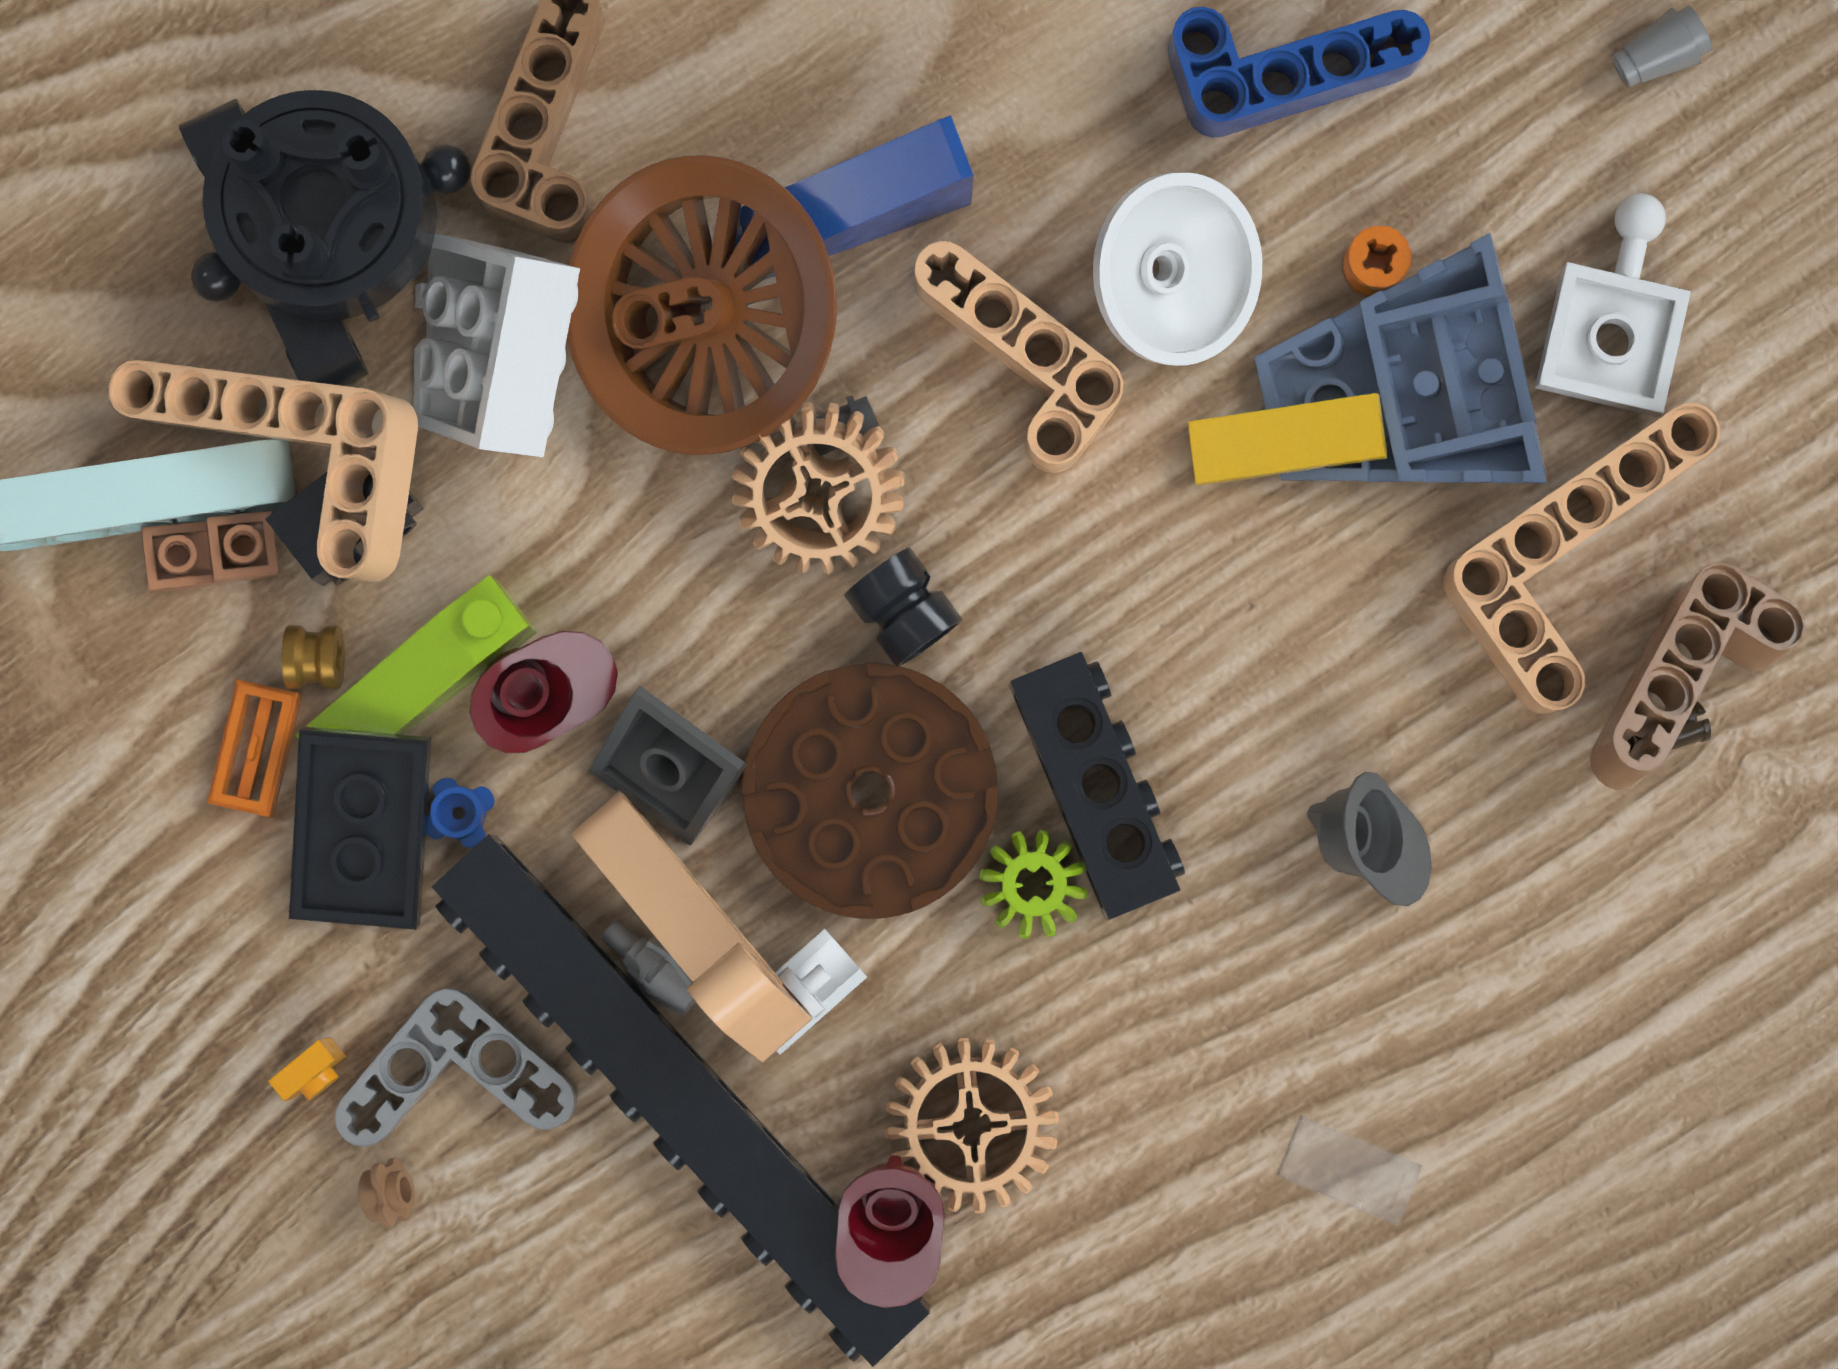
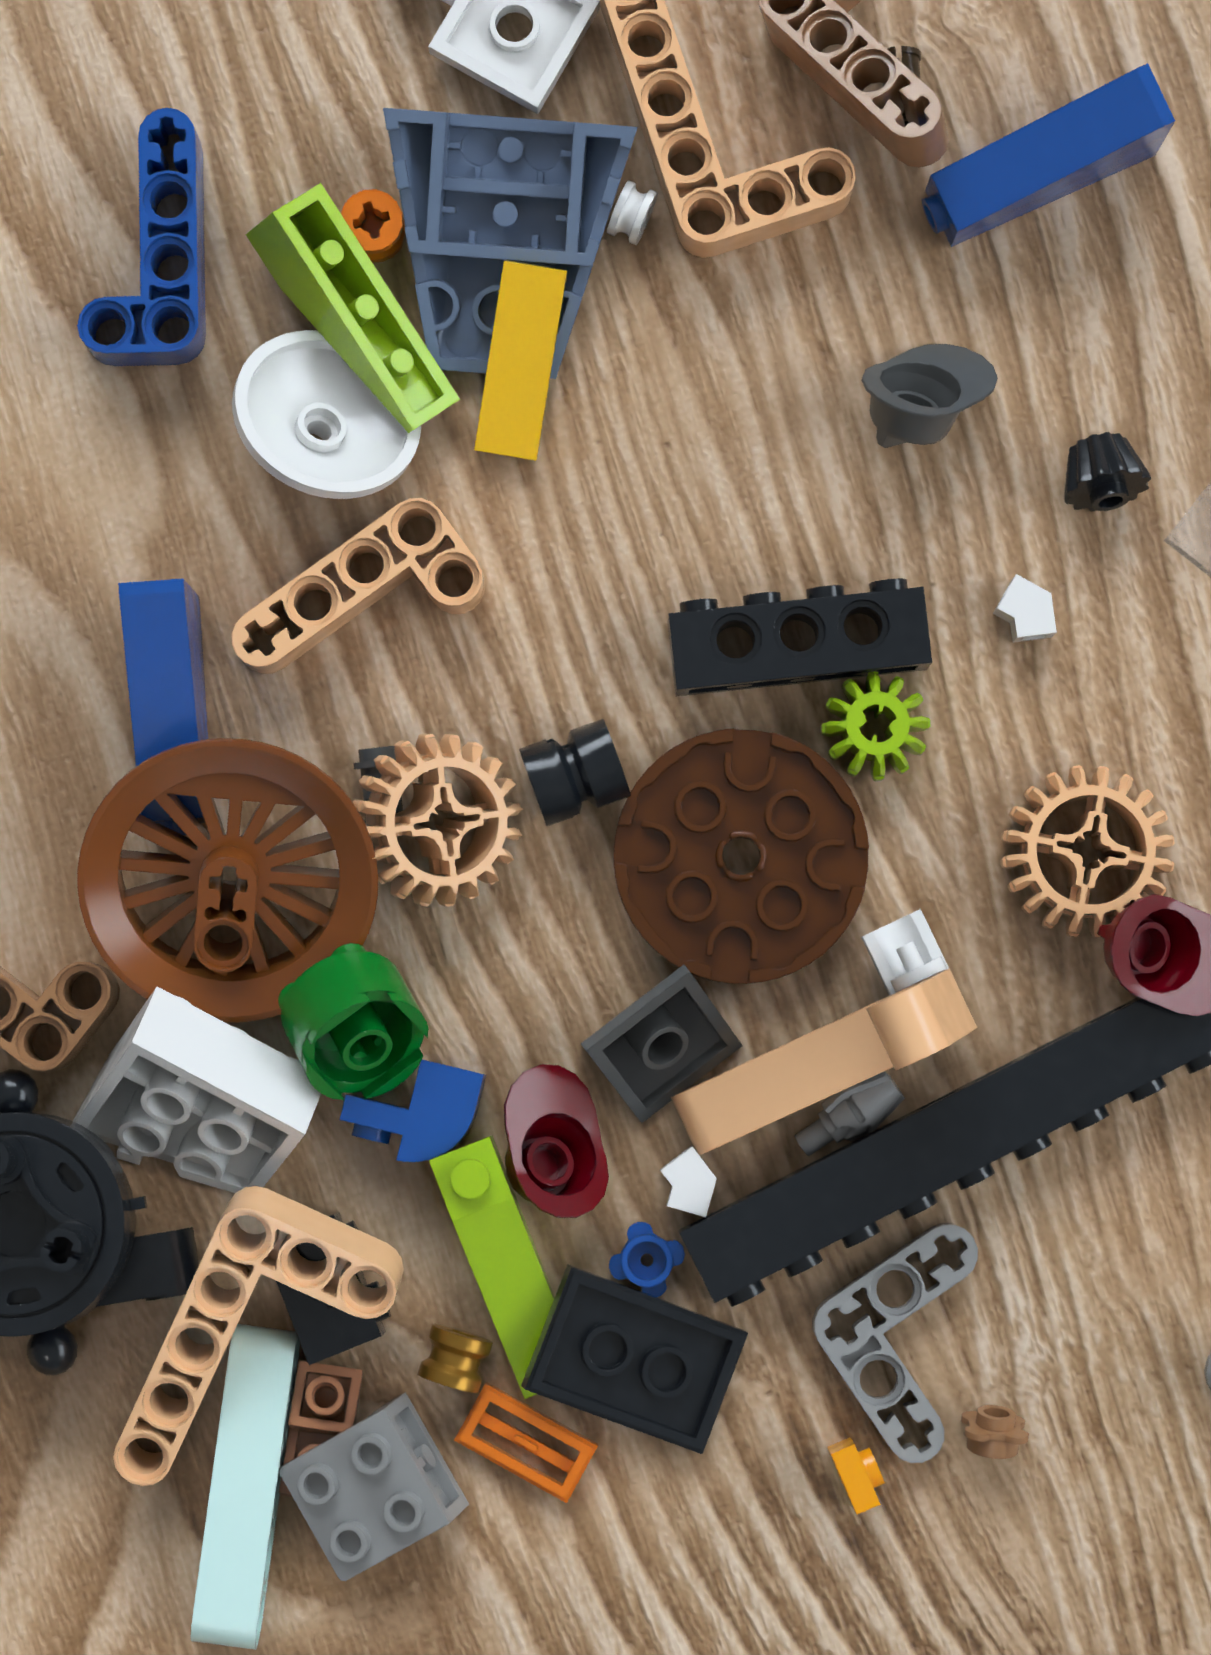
camera: 70 degrees left, 0 degrees up
(169, 617) = (374, 1488): none -> light grey bracket
(537, 573) = (436, 1120): none -> blue brick
(543, 833) = (690, 1182): none -> white piece
(599, 465) = (353, 1023): none -> green brick
(1191, 1000) = (1027, 610): none -> white piece
(1290, 263) = (351, 306): none -> lime slope
(1346, 1036) = (1104, 473): none -> black piece
(1464, 505) = (632, 212): none -> white bush
(1641, 894) = (1050, 157): none -> blue slope

